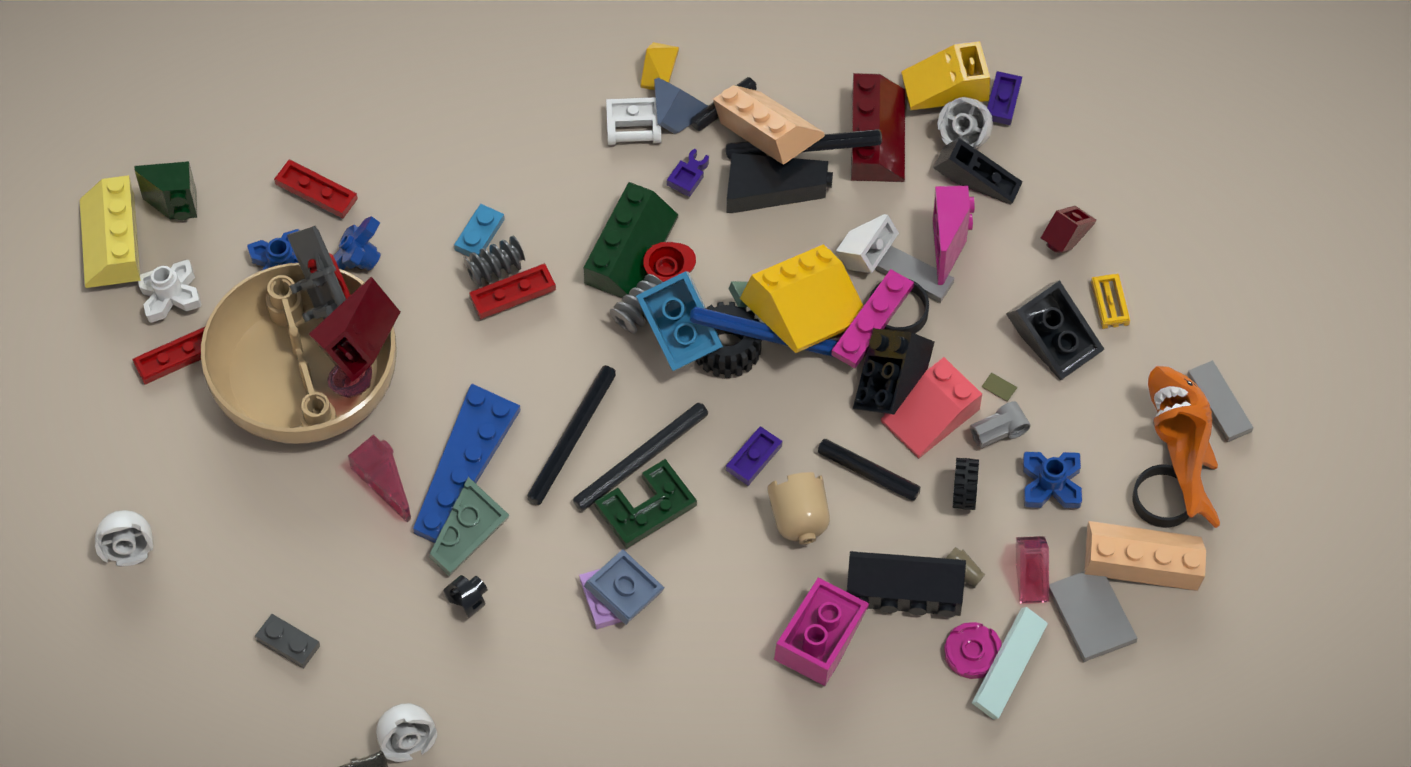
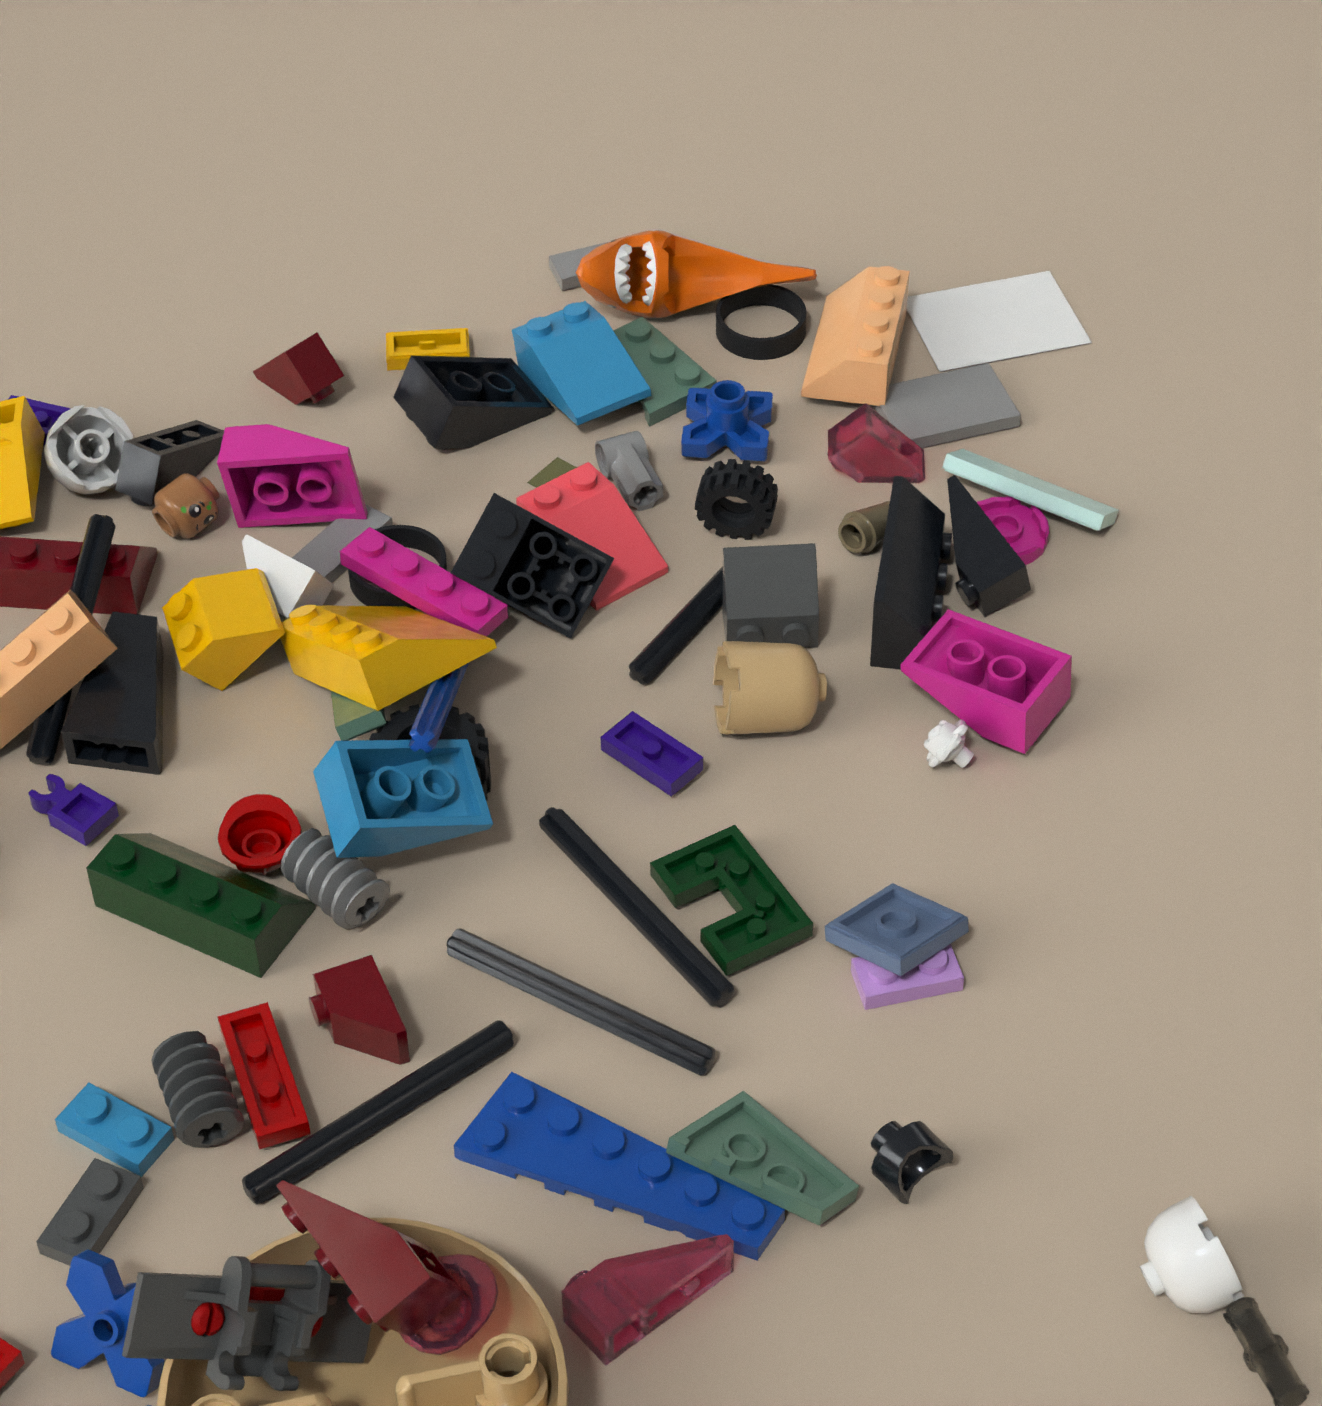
camera: 85 degrees left, 15 degrees down
(427, 230) = (90, 1212): none -> dark grey plate
(495, 349) = (378, 1111): none -> black axle
(554, 330) = (360, 1010): none -> dark red slope
(773, 613) = (947, 743): none -> white plant
(823, 216) = (222, 624): none -> yellow slope
(874, 508) = (771, 594): none -> dark grey slope
(926, 180) = (186, 506): none -> medium nougat head
(936, 626) = (985, 562): none -> black slope
(1090, 385) = (578, 363): none -> dark azure slope
(1106, 437) = (663, 367): none -> sand green wing
(1195, 647) = (995, 321): none -> white sticker

